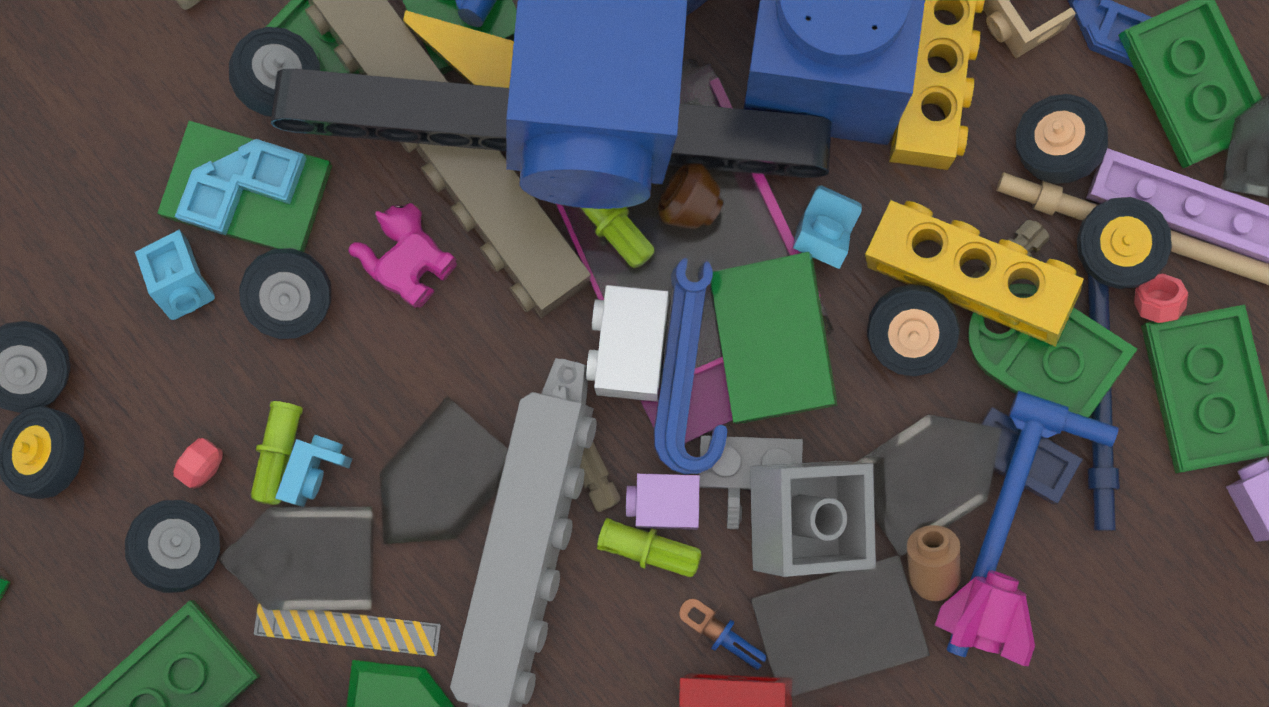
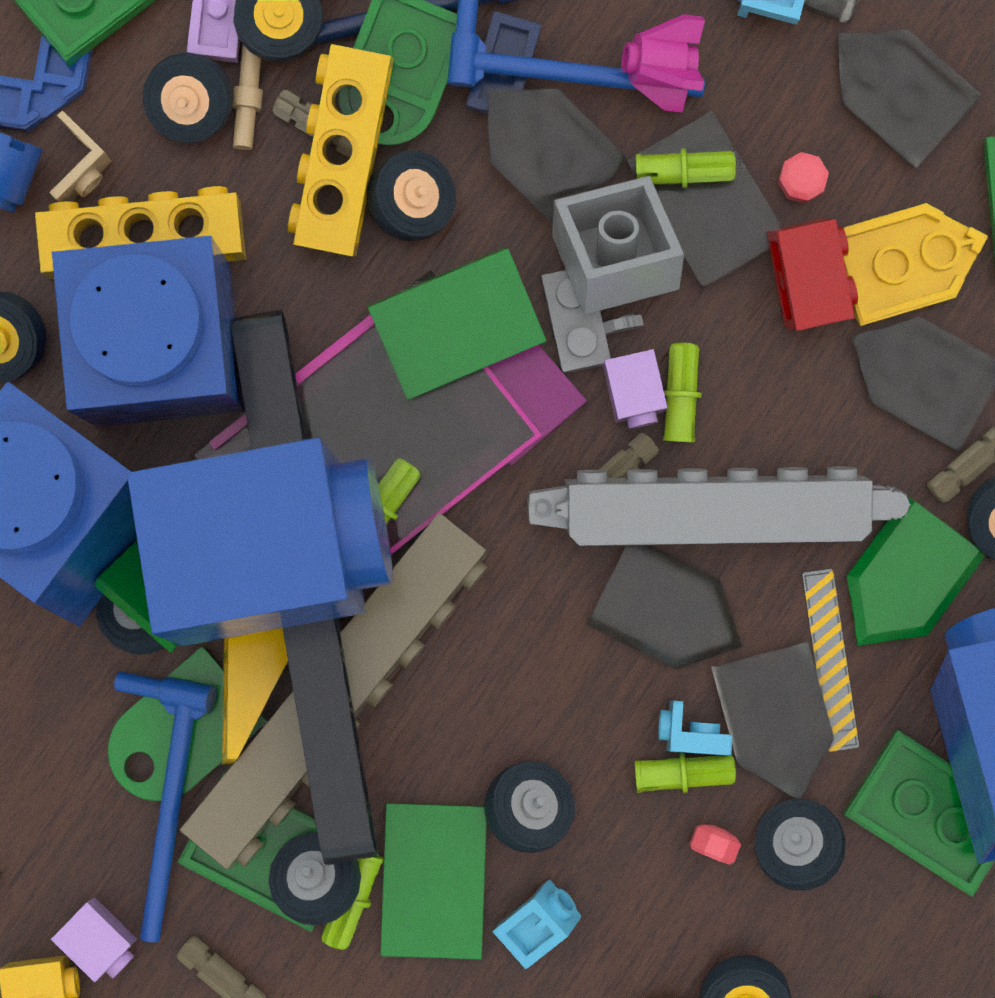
camera: 120 degrees left, 5 degrees up
(217, 186) = (440, 905): medium azure tile -> none
(220, 90) = (340, 932): none -> lime axle
(409, 259) = (459, 694): dark pink animal -> none
(629, 343) = (496, 457): white piece -> none
(679, 375) = (511, 404): blue piece -> none
(690, 198) = (343, 431): reddish brown cone -> none
(720, 632) = (742, 308): piece -> none
(827, 226) = (332, 302): medium azure bracket -> none
(876, 610) = (687, 167): none -> lime axle
(934, 562) = (626, 125): medium nougat brick -> none

